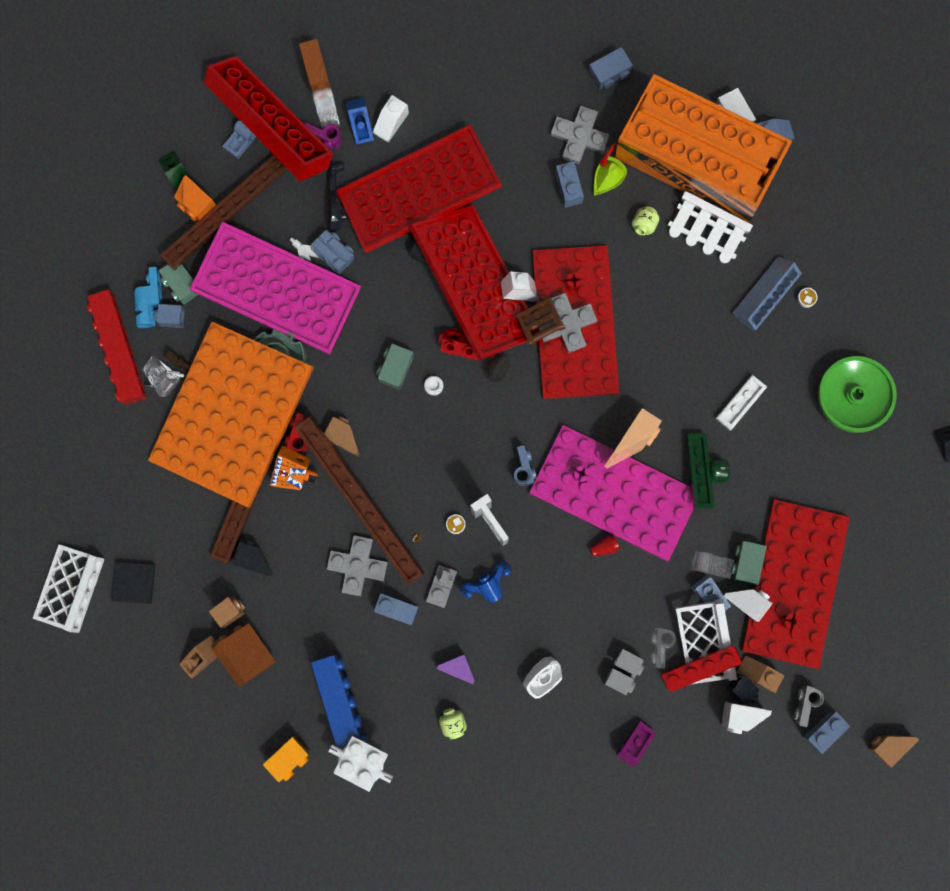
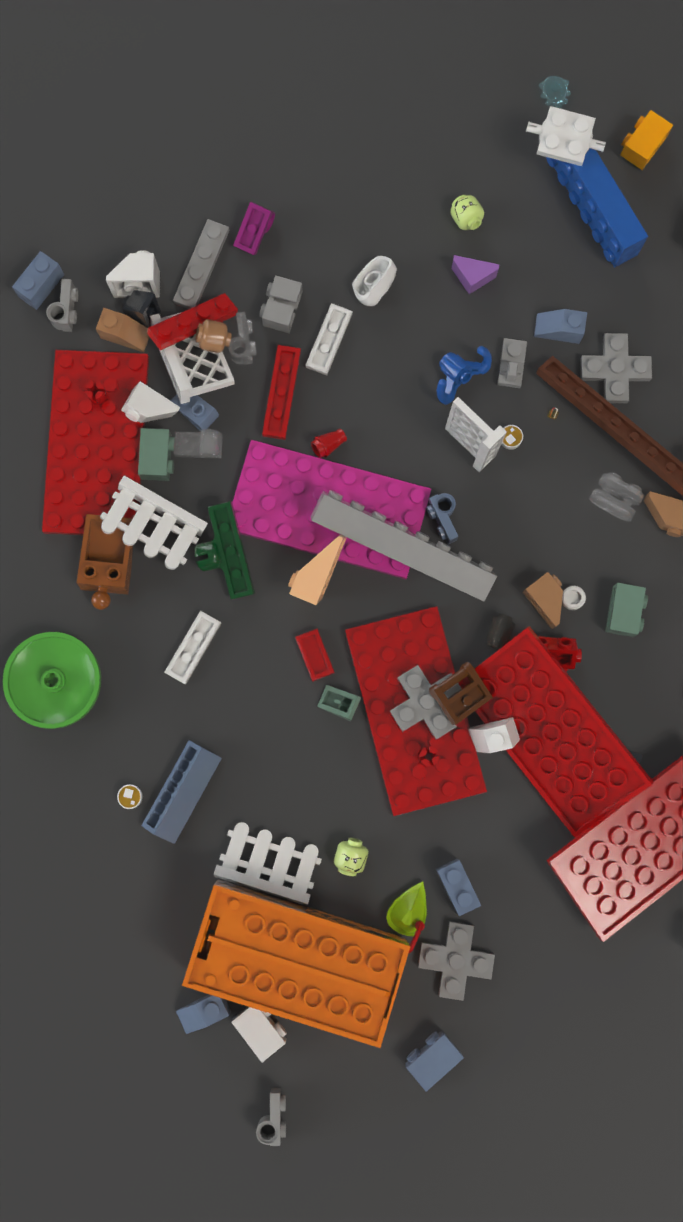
camera: 165 degrees right, 0 degrees up
(353, 823) = (555, 91): none -> clear light blue piece
(369, 458) = (629, 493): none -> clear brick
(455, 388) = (546, 598): none -> medium nougat slope
(564, 445) = (402, 545): none -> light grey brick
(589, 636) = (329, 339): none -> white tile
(633, 337) = (339, 702): none -> sand green slope
(636, 596) = (281, 392): none -> red plate
(646, 379) = (314, 655): none -> red tile
(685, 722) = (201, 264): none -> light grey plate
(687, 649) = (213, 336): none -> medium nougat head
(734, 49) = (277, 1104): none -> light grey plate
(765, 512) = (152, 502): none -> white fence
(801, 488) = (104, 556): none -> dark orange slope

